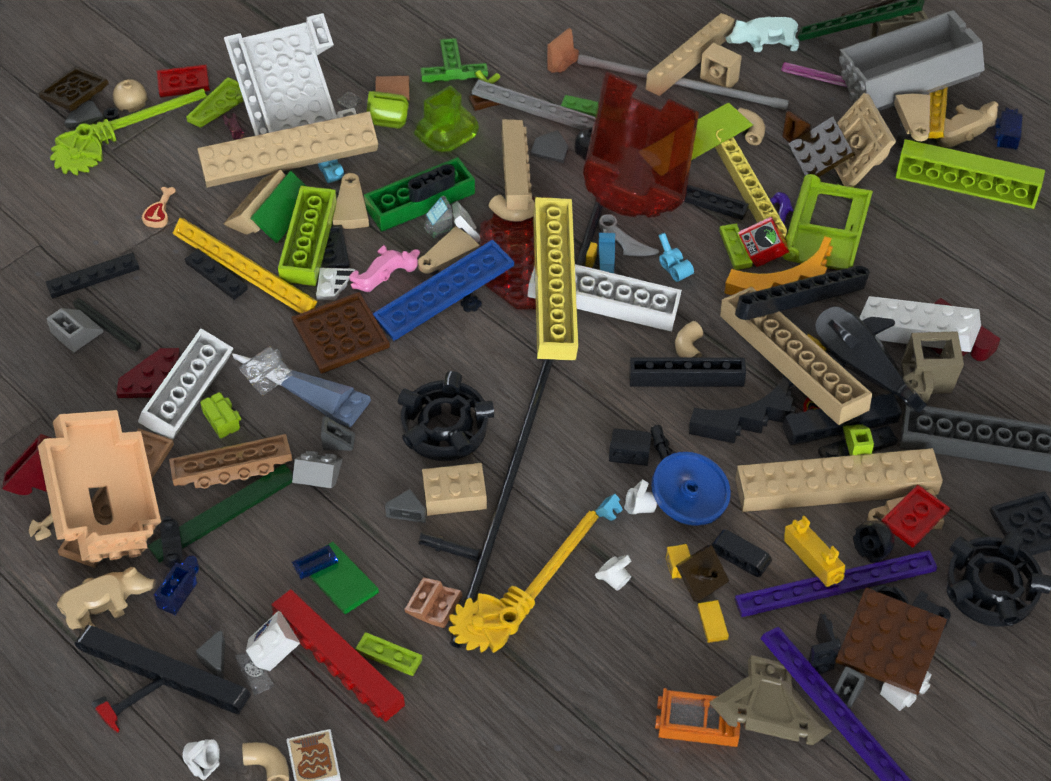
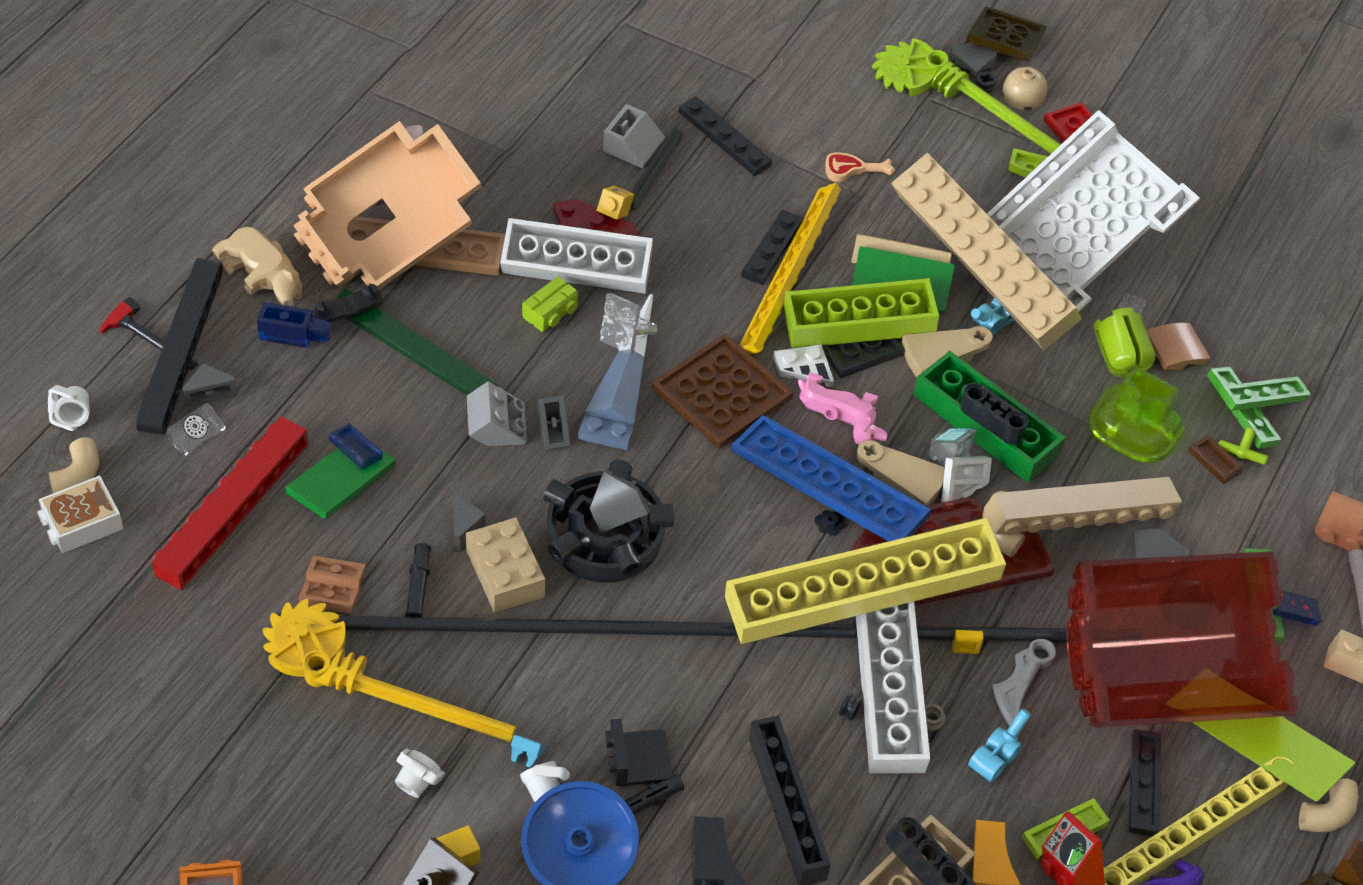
camera: 70 degrees right, 0 degrees up
(138, 352) = (615, 202): none -> yellow brick
(230, 462) = (482, 331): medium nougat plate -> none
(271, 642) = (227, 430): white slope -> none
(389, 654) = (244, 554): lime plate -> none
(438, 401) = (617, 502): none -> dark grey slope
(532, 105) = (1226, 493): light grey tile -> none
(606, 249) = (972, 663): dark azure leg -> none
(622, 326) = (850, 706): none -> black bush
(686, 338) = (847, 790): tan cylinder -> none

